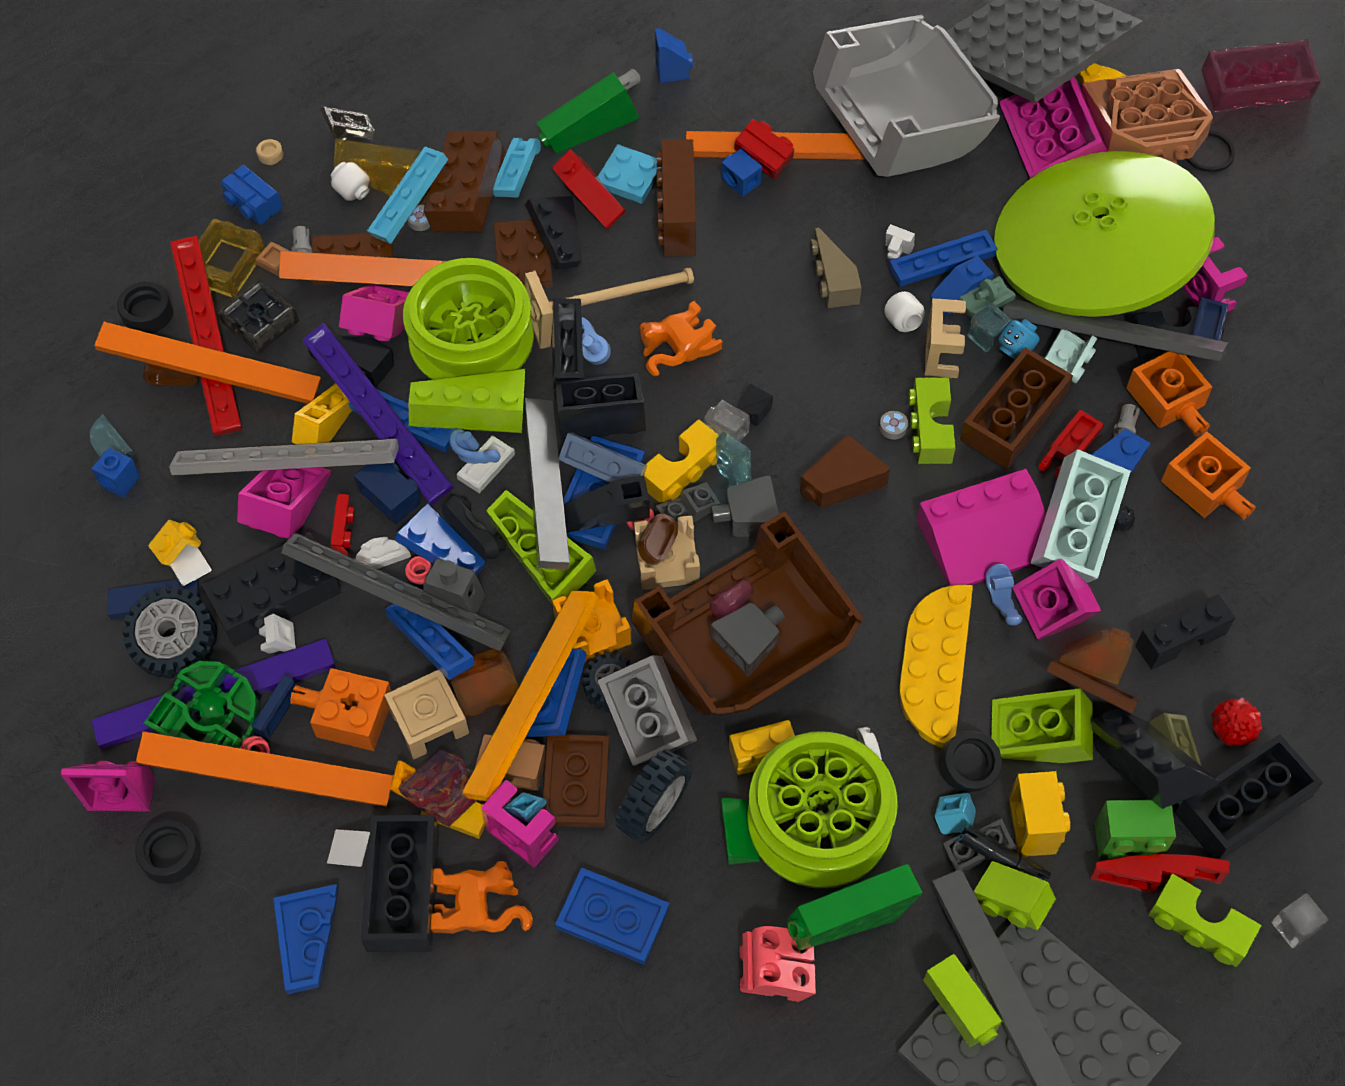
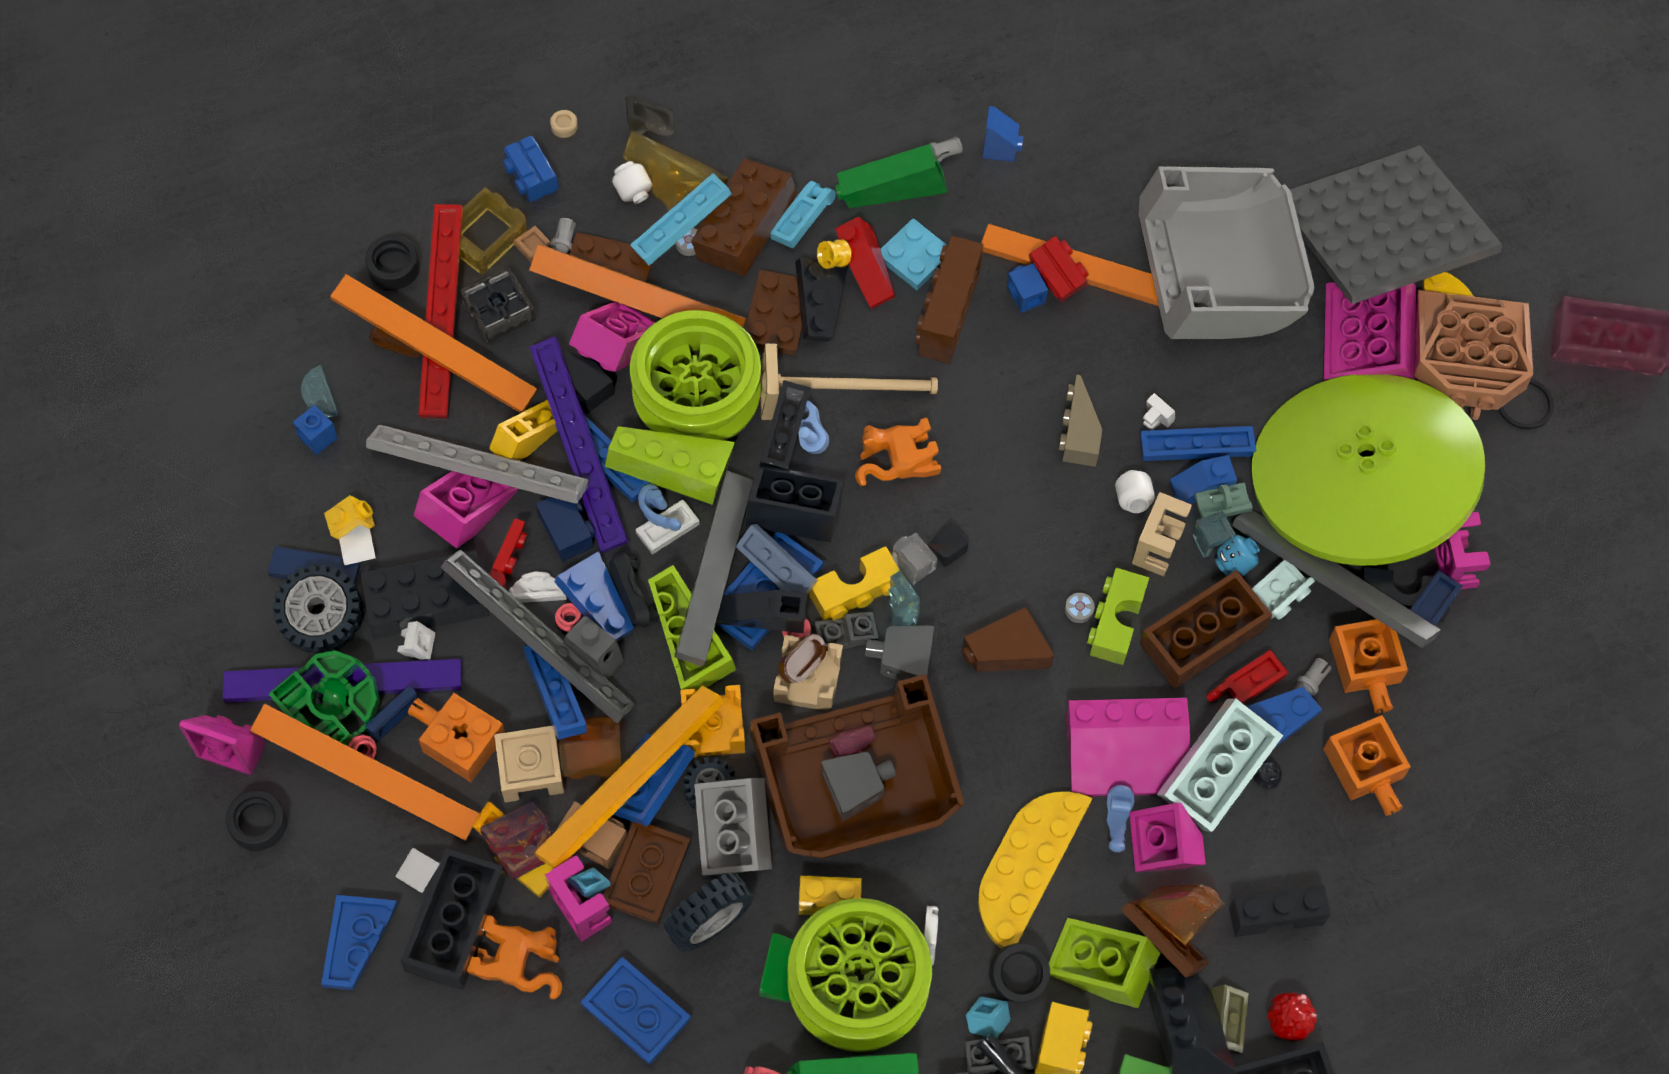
camera: 15 degrees right, 5 degrees up
(558, 187) = (834, 254): none -> yellow wheel

